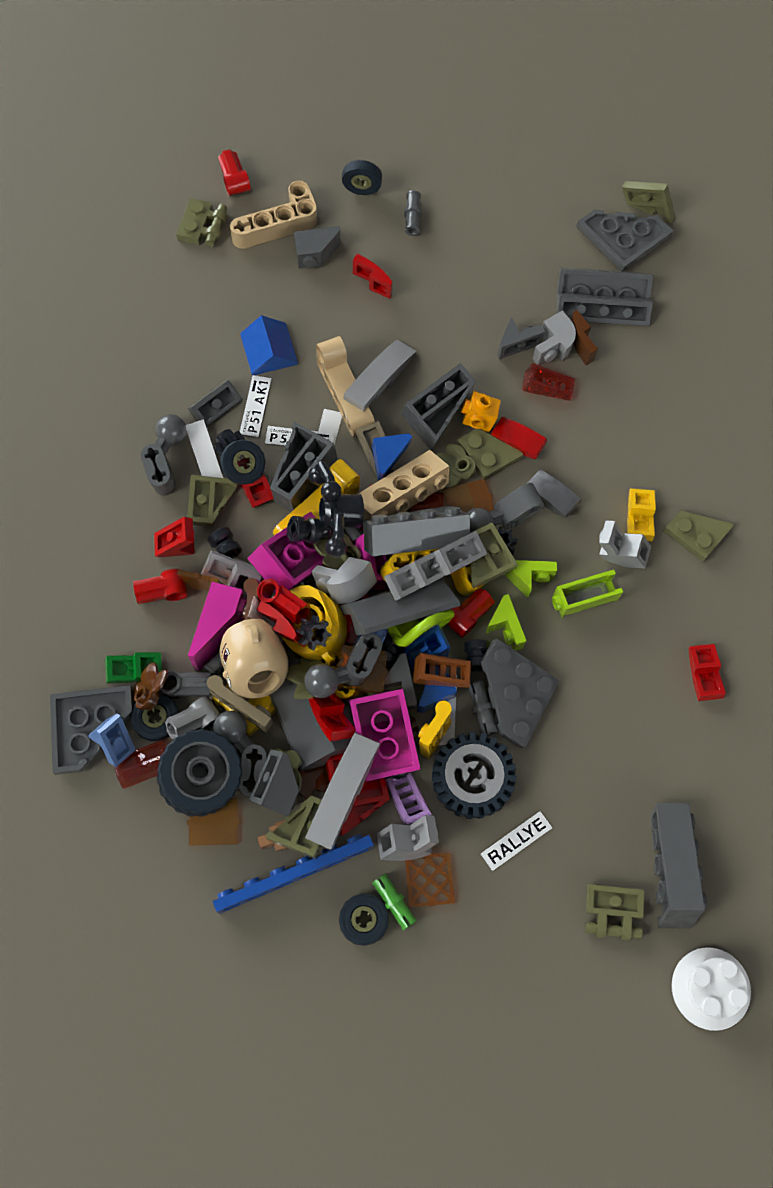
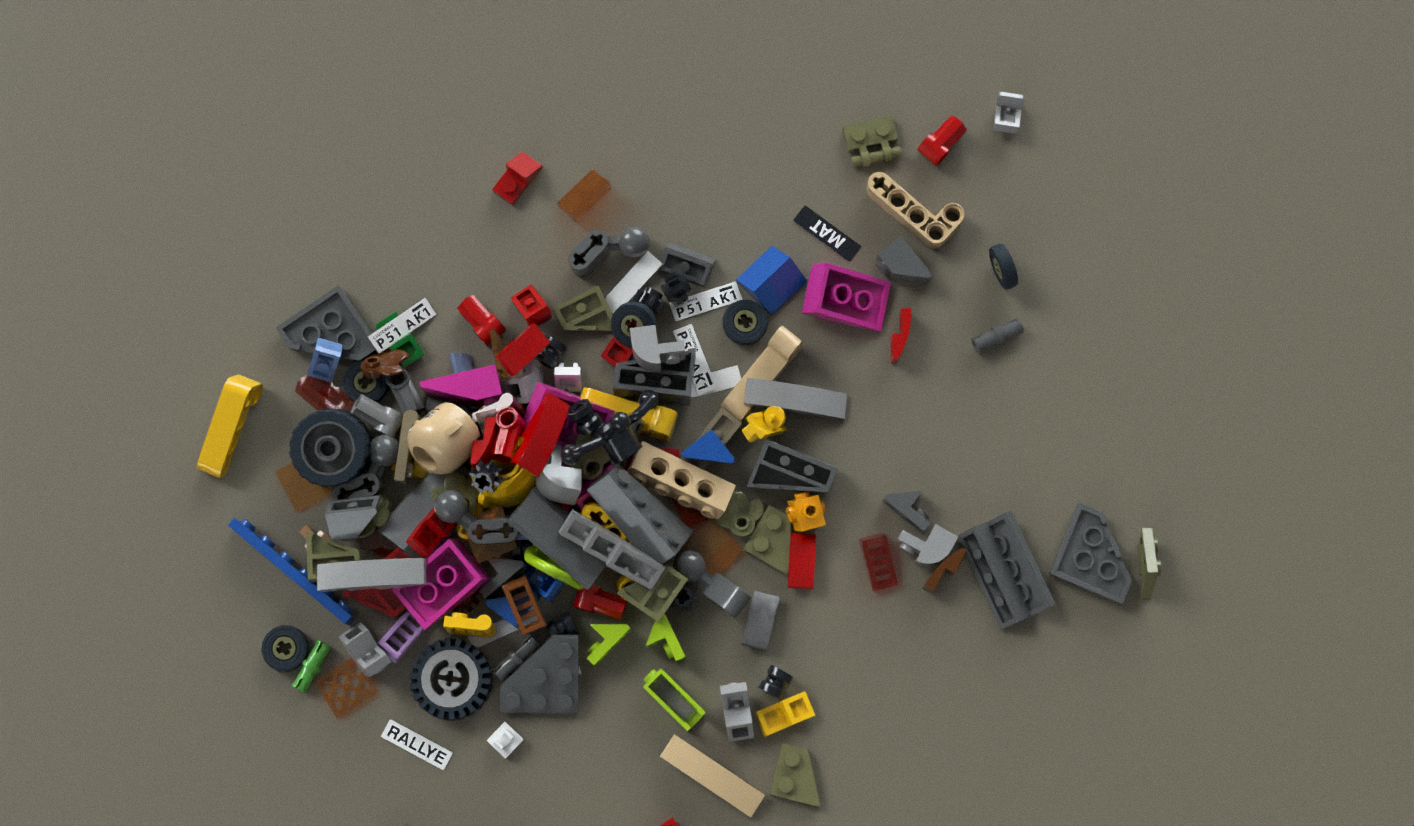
camera: 70 degrees right, 10 degrees up
(53, 498) = (518, 176): none -> red slope
(104, 451) = (584, 195): none -> clear orange panel
(119, 865) = (227, 424): none -> yellow beam
(122, 658) = (402, 325): none -> white sticker
(187, 625) = (461, 362): none -> sand blue slope
(212, 555) = (522, 349): none -> red slope
(231, 417) = (676, 288): none -> black gear
(240, 121) = (1008, 112): none -> light grey bracket
(254, 291) = (826, 233): none -> black sticker
(255, 537) = (568, 378): none -> tile
(276, 453) = (650, 353): none -> light grey brick
(285, 374) = (753, 312): none -> black bush
(302, 570) = (541, 434): none -> red slope
(316, 299) = (846, 296): none -> dark pink slope
(390, 400) = (765, 424): none -> yellow hips
(552, 756) = (505, 740): none -> white tile
(611, 506) = (775, 688): none -> black wheel
(668, 595) = (712, 775): none -> tan slope

